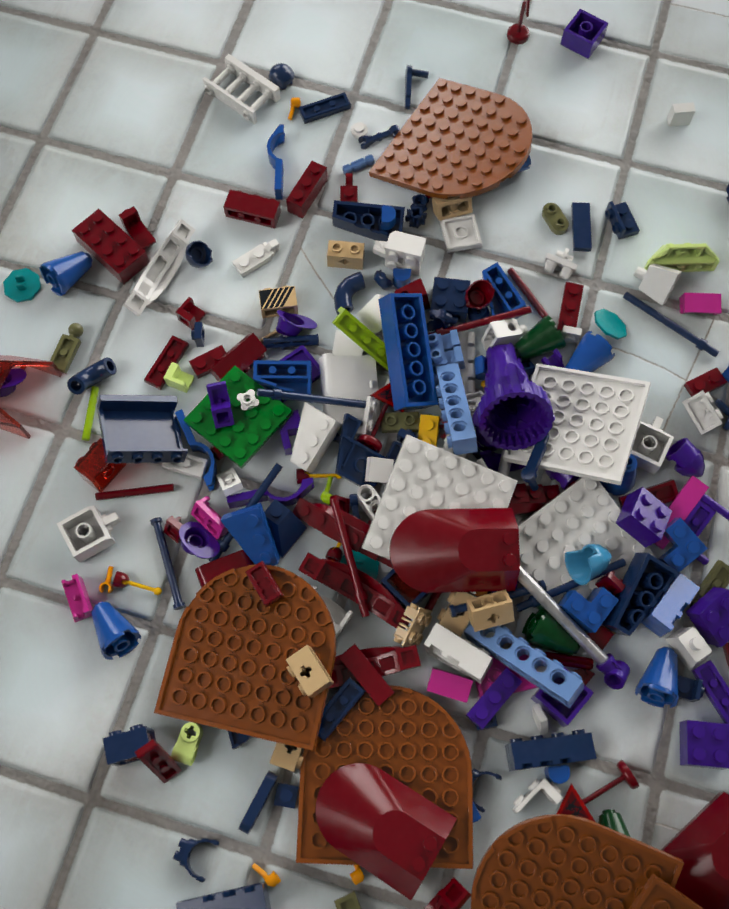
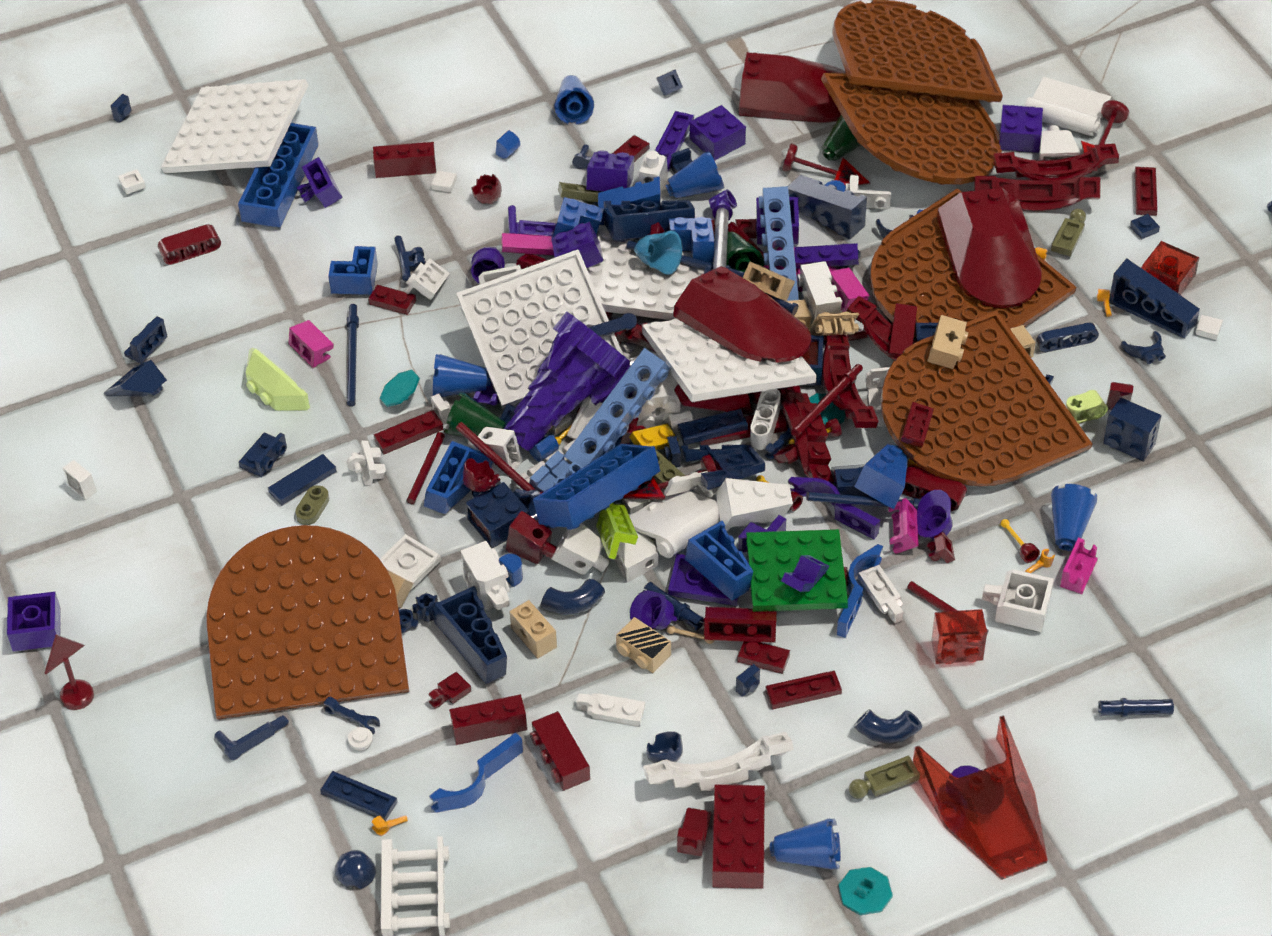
camera: 130 degrees left, 20 degrees down
(90, 413) = (930, 699): lime bar -> none
(140, 429) = (896, 621): panel -> none
(178, 379) = (809, 662): yellowish green panel -> none
(178, 604) = (996, 499): dark blue bar -> none
(189, 313) = (735, 710): dark red panel -> none
(229, 482) = (859, 534): white plate -> none
(247, 405) = (777, 559): white plate -> none
(278, 394) = (750, 527): dark blue bar -> none
(286, 795) = (1039, 326): dark blue plate -> none
(325, 496) = (789, 471): lime hand -> none
(358, 164) = (407, 706): medium blue axle -> none
(378, 469) = (727, 443): white piece -> none
(382, 280) = (530, 582): dark blue plate -> none
(388, 217) = (466, 599): blue brick -> none
(540, 719) = (808, 223): white tile -> none
(657, 281) = (319, 375): white torso -> none

